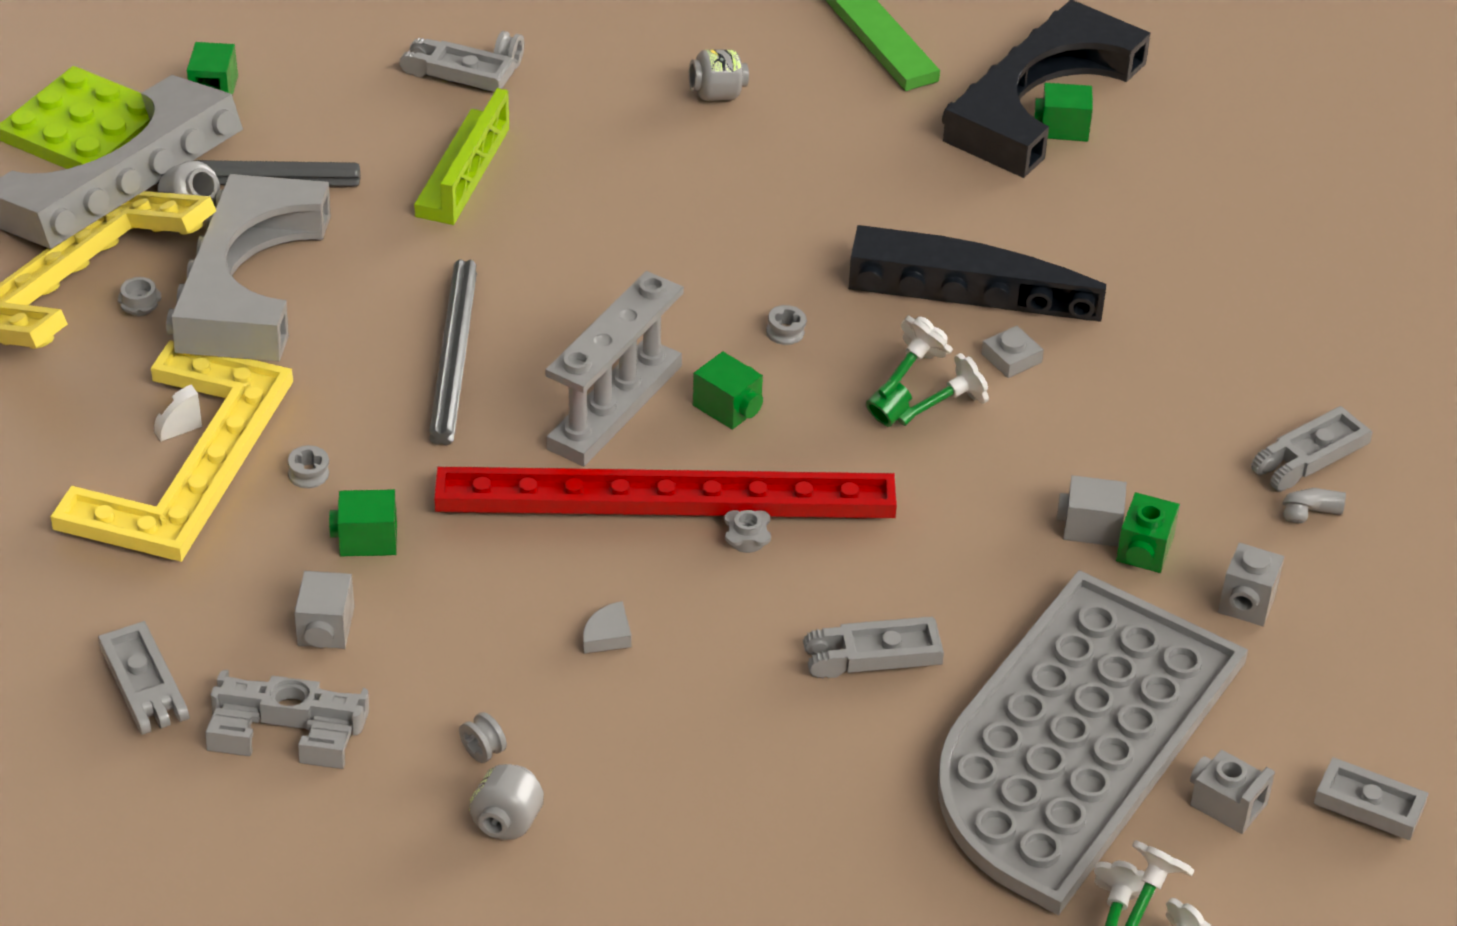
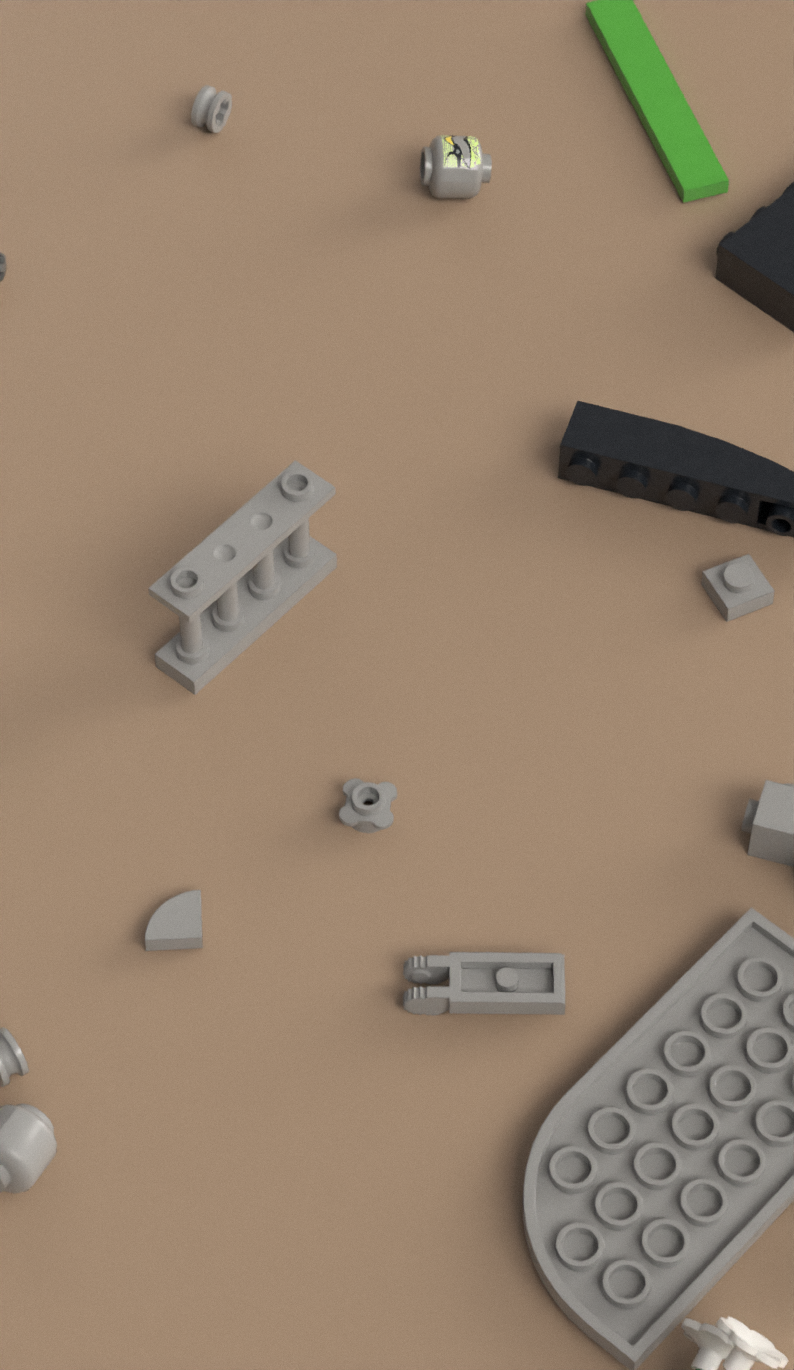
camera: 10 degrees right, 10 degrees up
(453, 353) = (68, 525): dark grey axle -> none
(457, 64) = (148, 123): light grey hinge -> none
(465, 161) = (131, 261): lime fence -> none
(664, 492) = (281, 745): red plate -> none
(727, 390) = (380, 612): green brick -> none
(786, 334) = (472, 510): light grey bush -> none
(924, 340) = (630, 572): plant -> none

